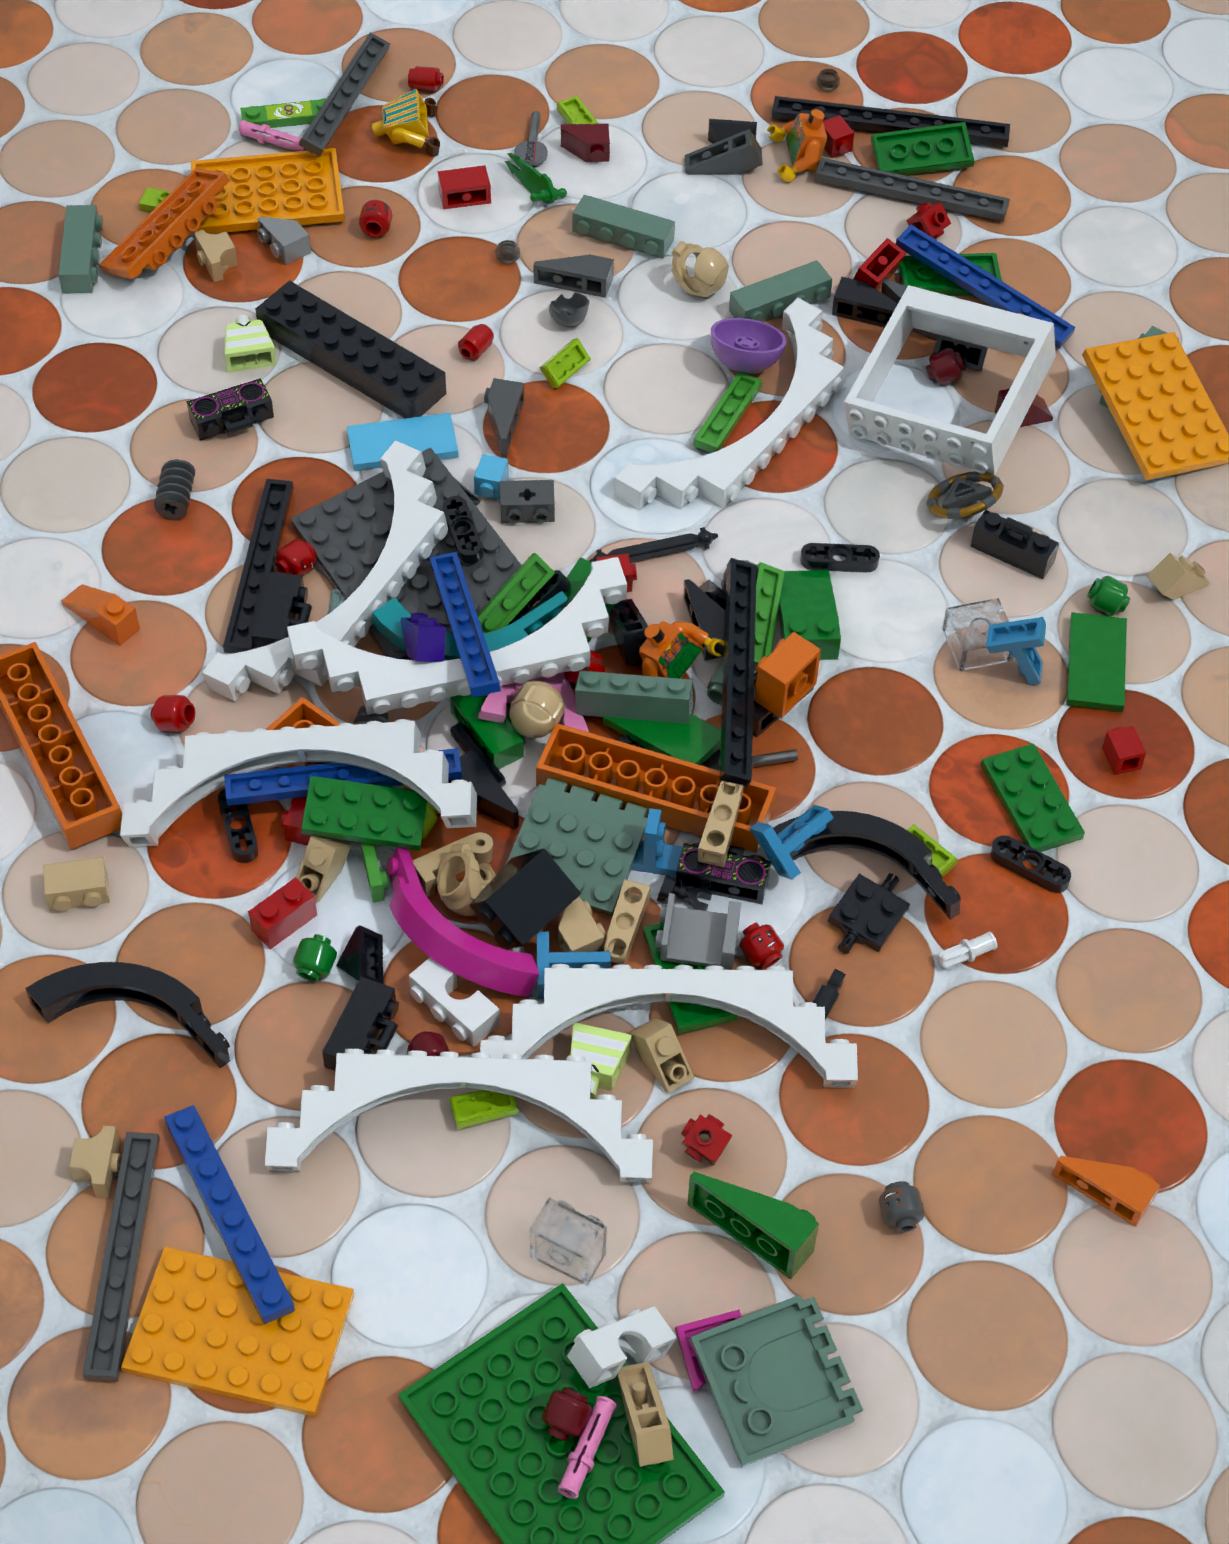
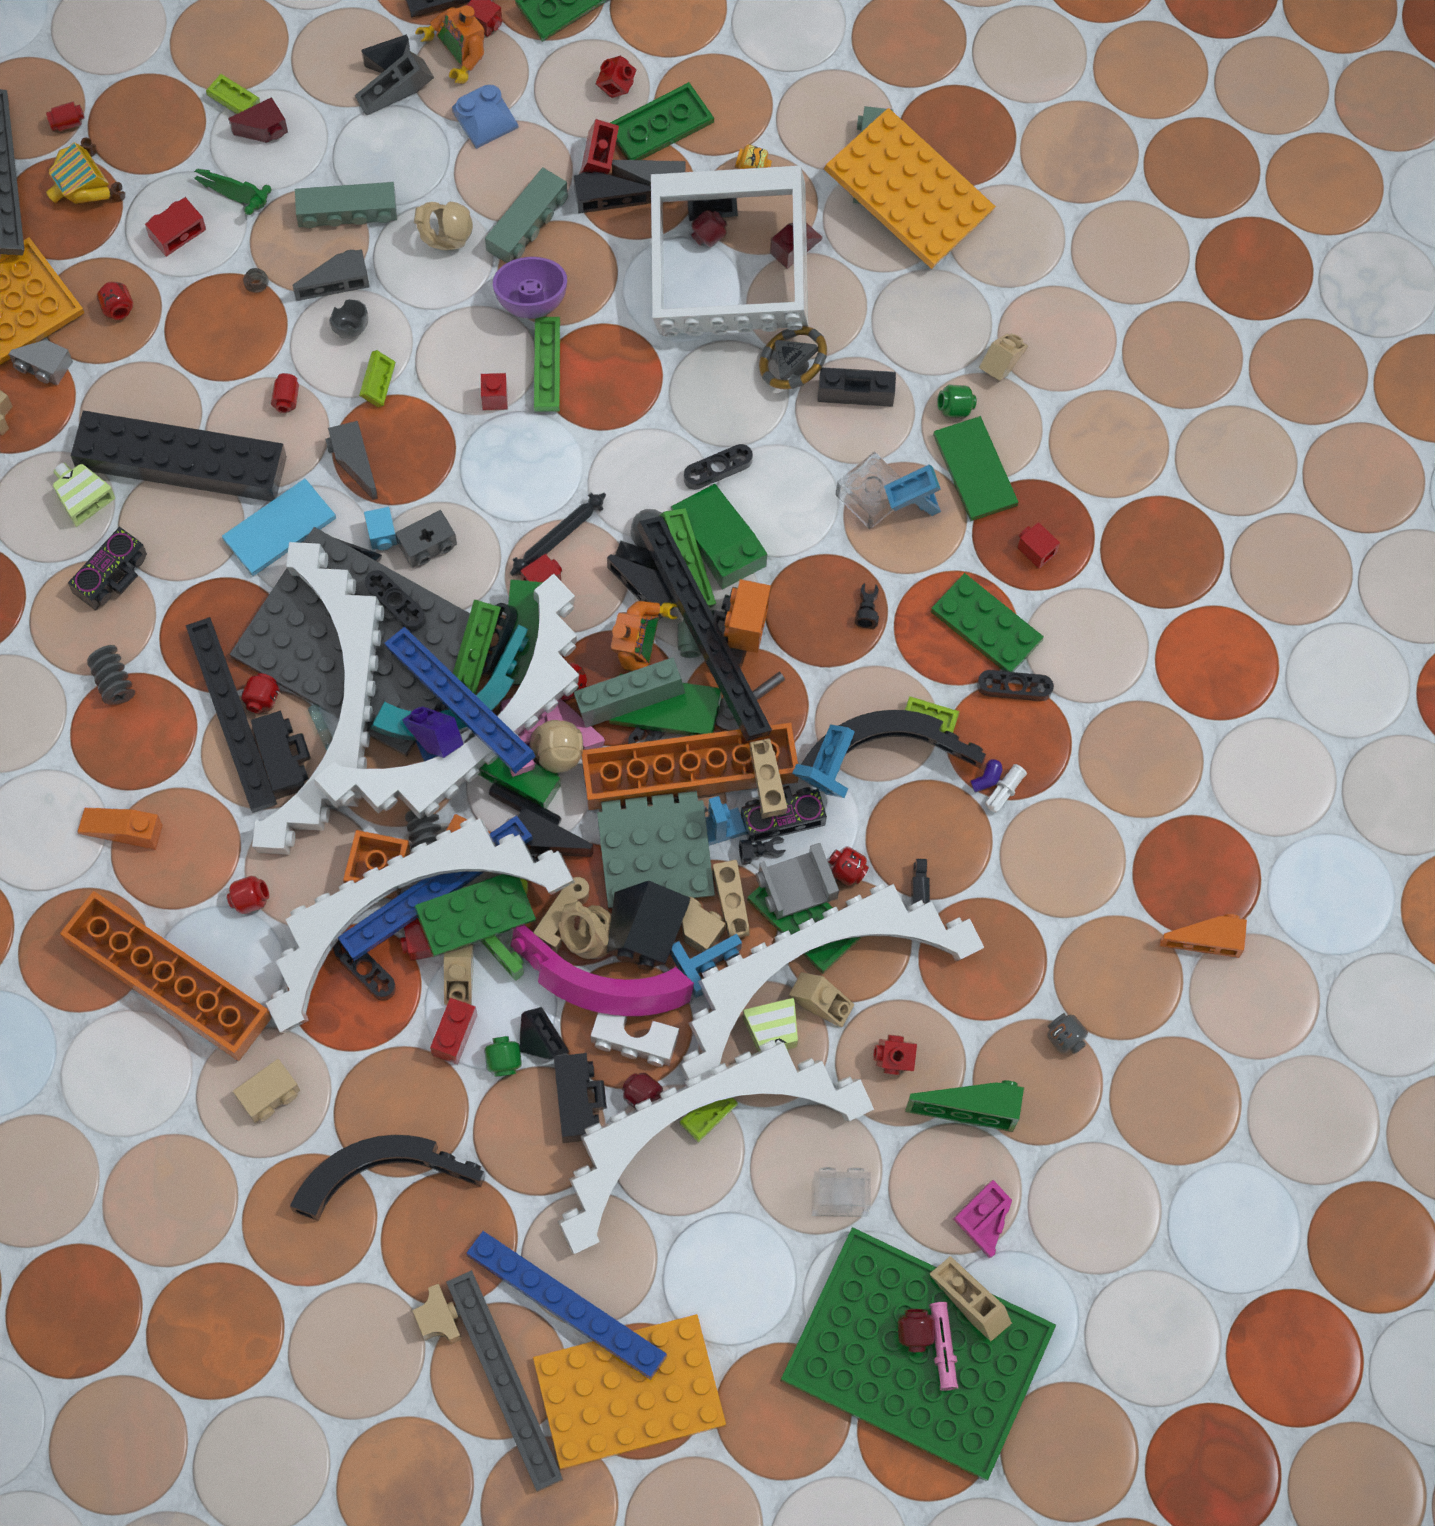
camera: 30 degrees left, 15 degrees up
(532, 151) = (211, 155): flat silver piece -> none
(600, 1353) = (933, 1240): white arch -> none
(628, 630) = (591, 630): black slope -> none
(664, 413) = (494, 391): none -> red brick
(726, 471) = (577, 429): white arch -> none
(775, 1378) = (1047, 1219): sand green hinge -> none
(791, 209) = (484, 115): none -> medium blue slope
(868, 913) = (913, 792): black plate -> none
(911, 738) = (866, 615): none -> black piece
(912, 189) = (580, 44): dark grey plate -> none
(954, 934) = (990, 777): none -> dark purple arm
(977, 280) = (698, 126): blue plate -> none

